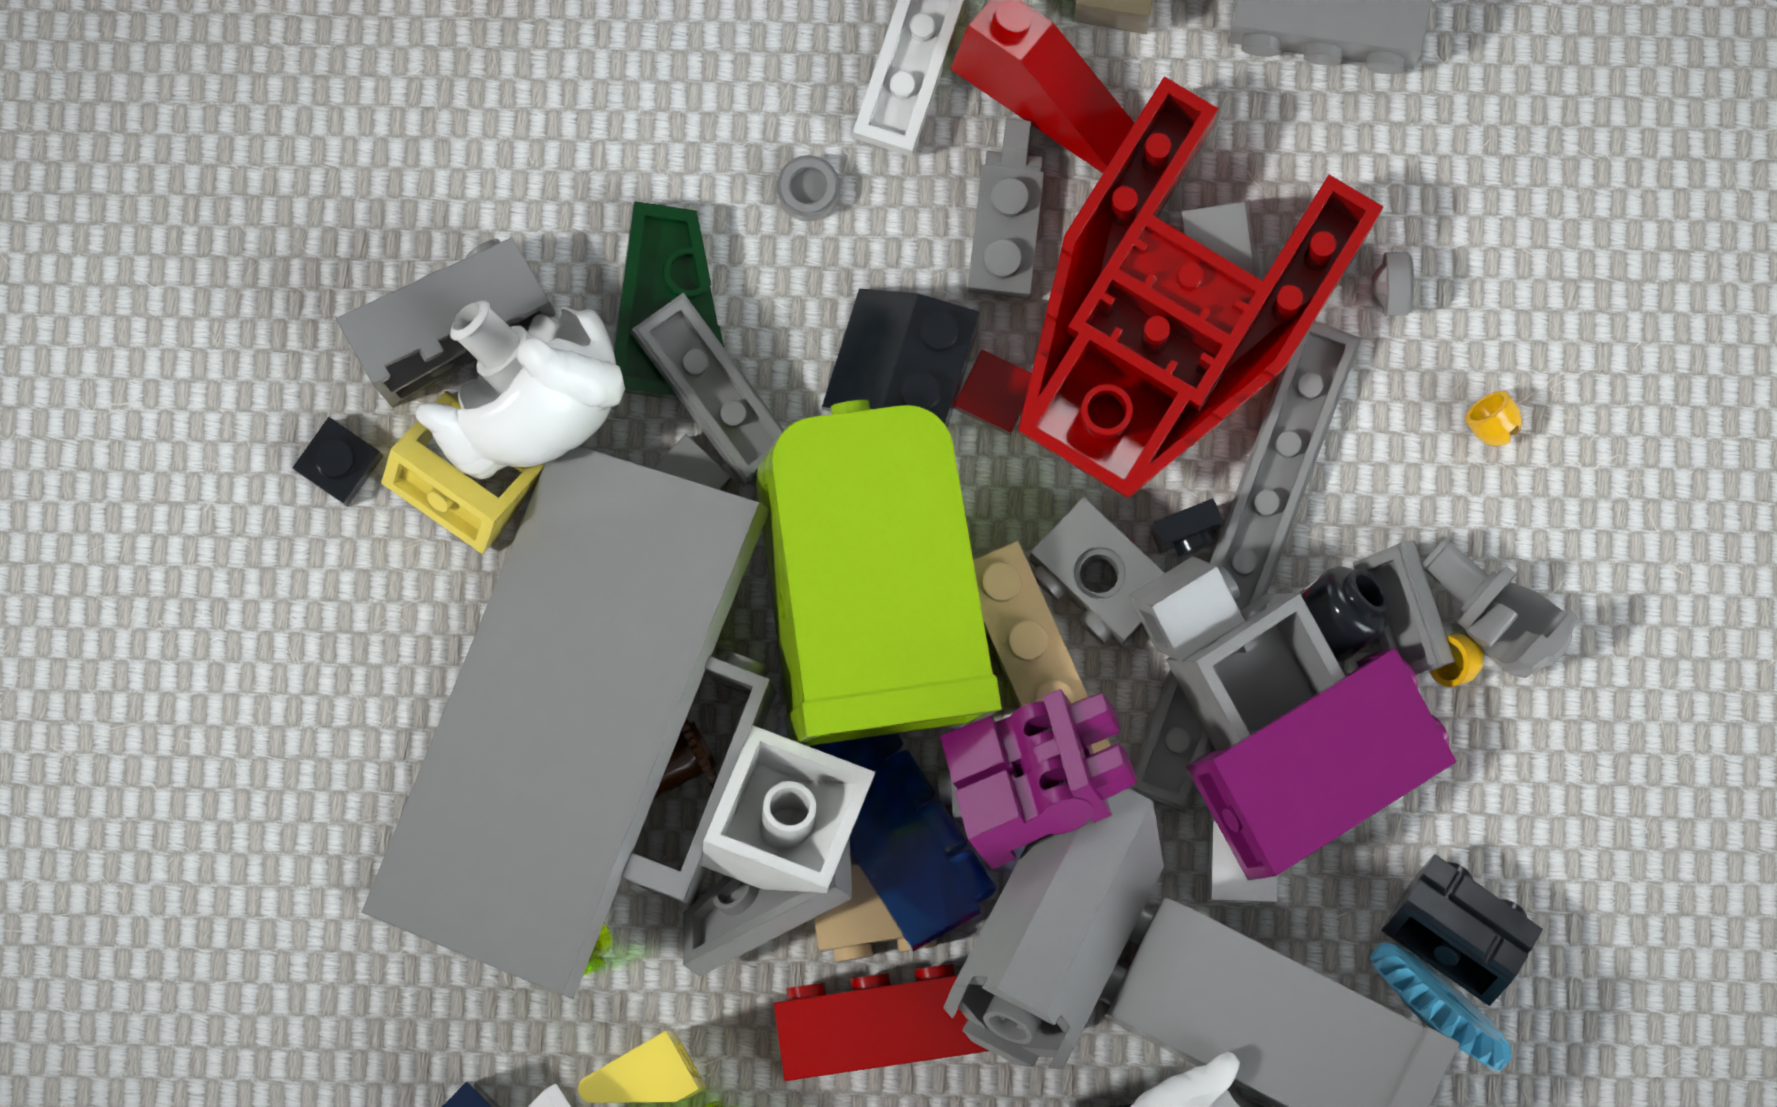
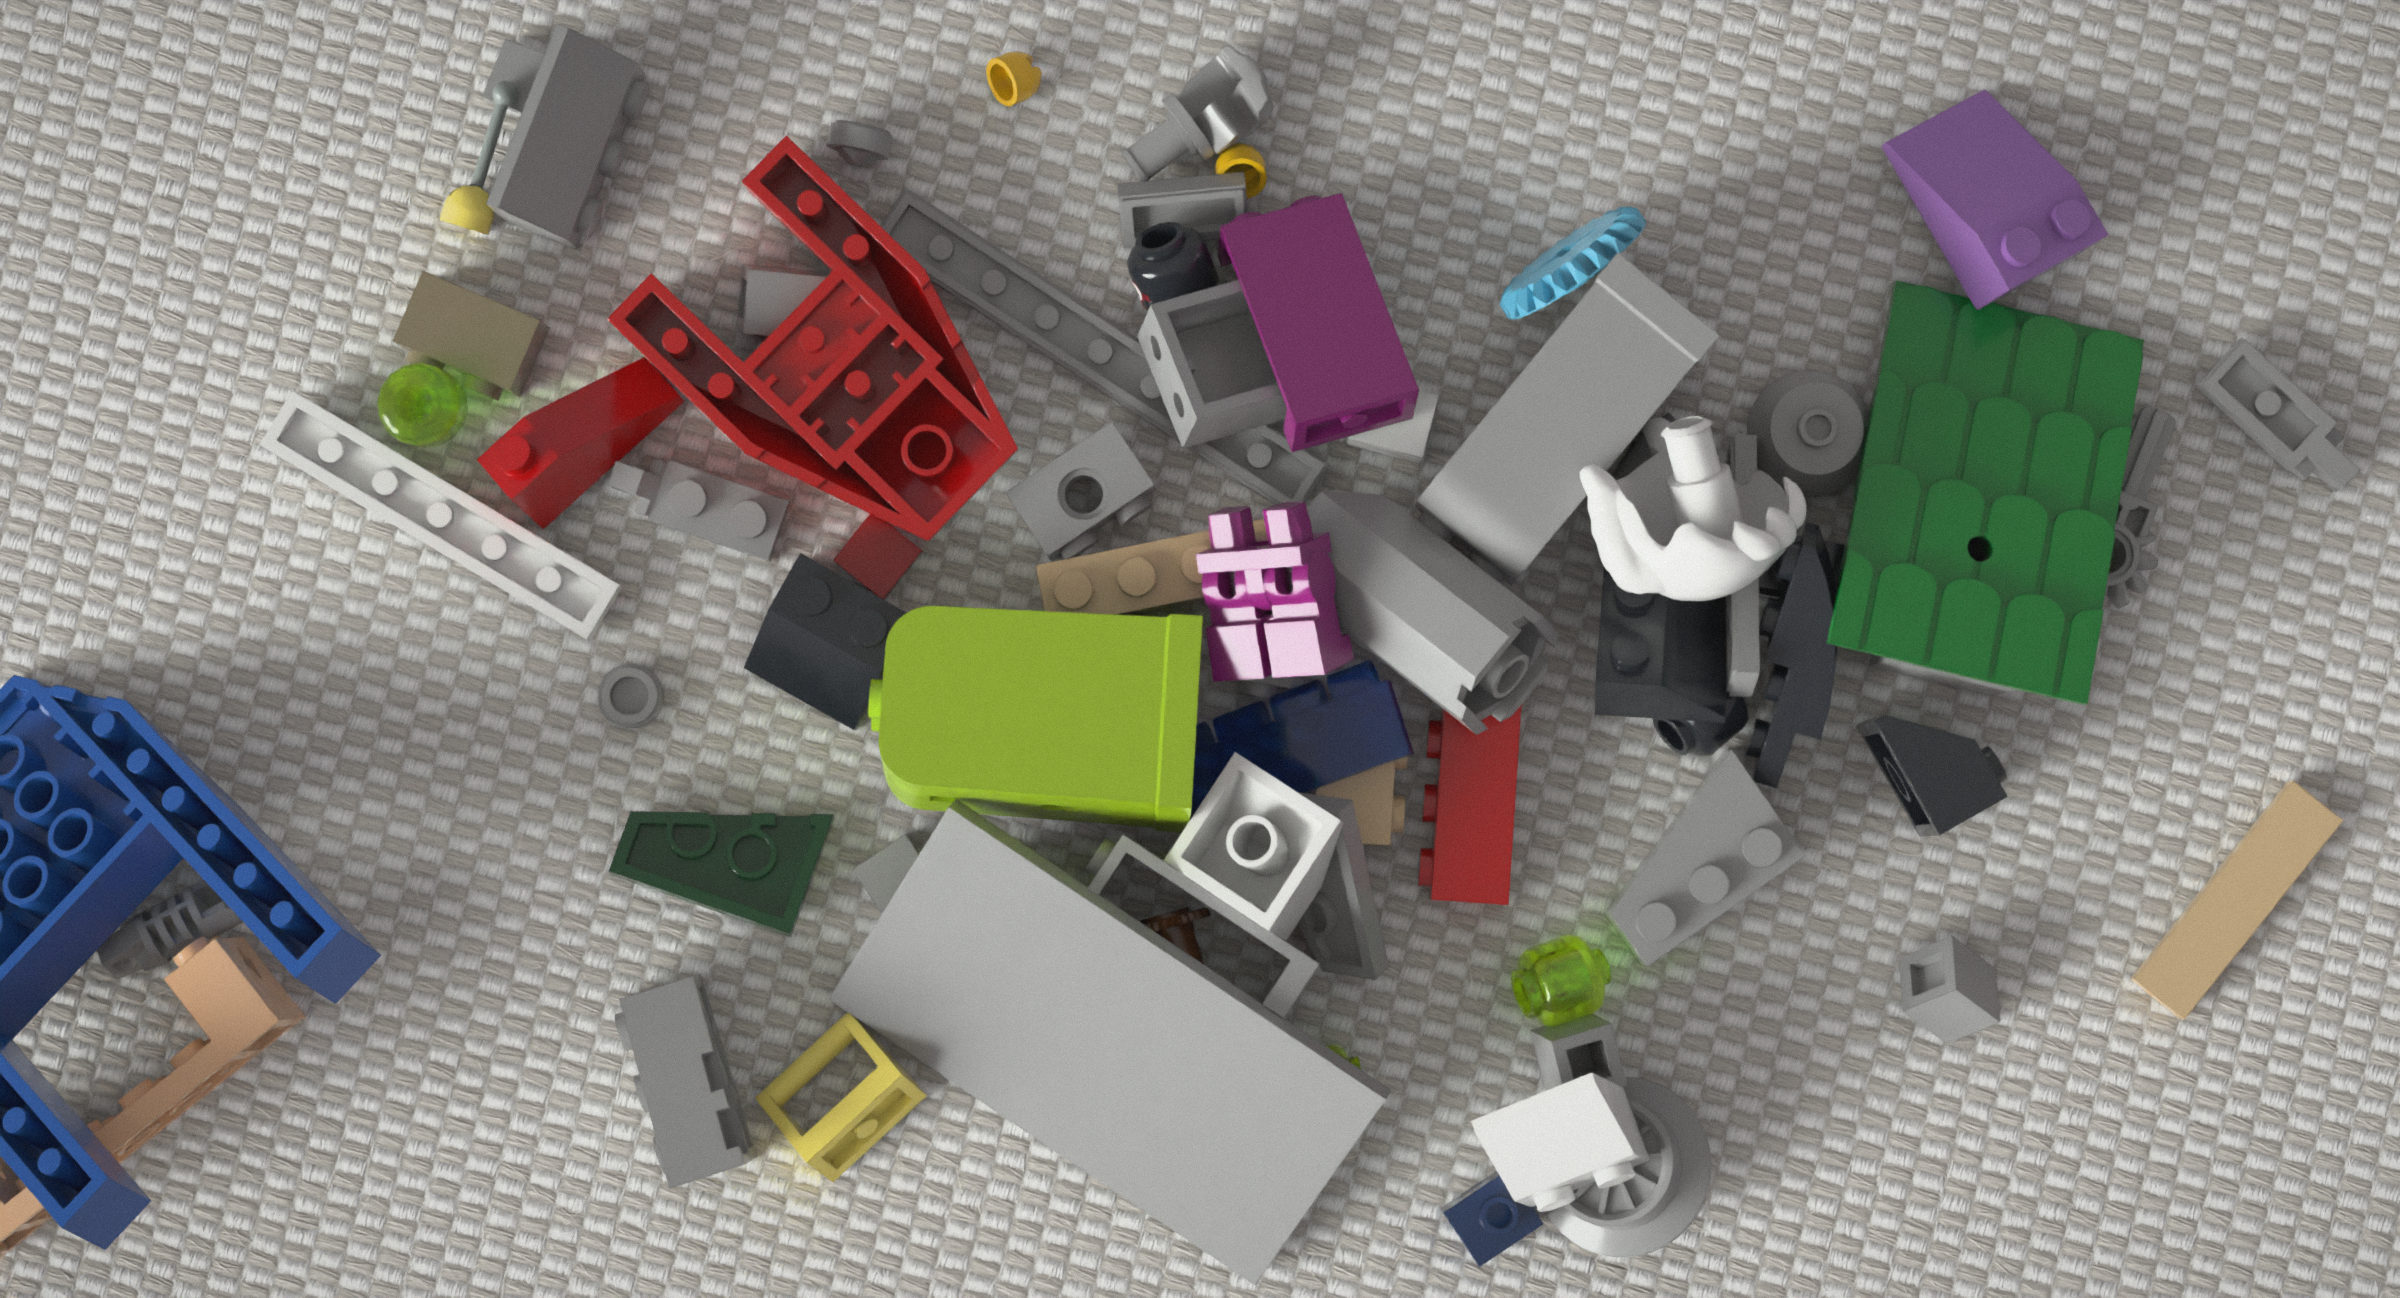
camera: 80 degrees left, 5 degrees up
(338, 461) = (801, 1221): black plate -> none
(534, 392) = (782, 1009): white piece -> none
(649, 1073) = (1475, 1036): light yellow tile -> none
(709, 385) = (812, 834): light grey tile -> none
(1187, 529) = (1058, 399): black plate -> none
(1188, 607) = (1138, 415): light grey brick -> none
(1462, 929) = (1501, 225): black brick -> none

